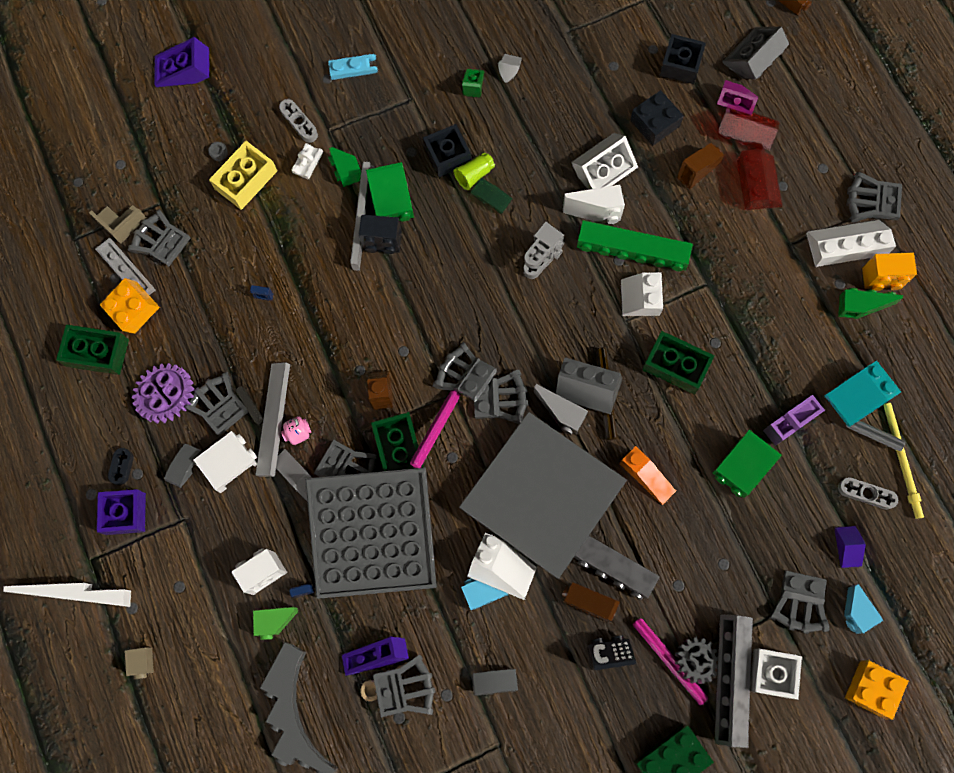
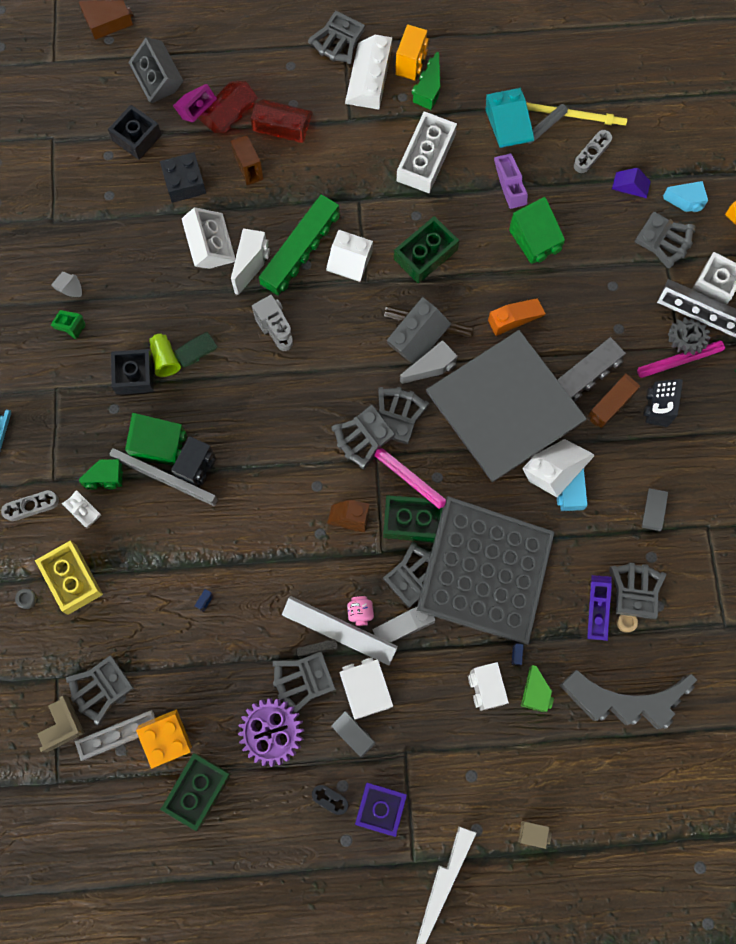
camera: 75 degrees left, 0 degrees up
(785, 325) = (426, 152): none -> white brick

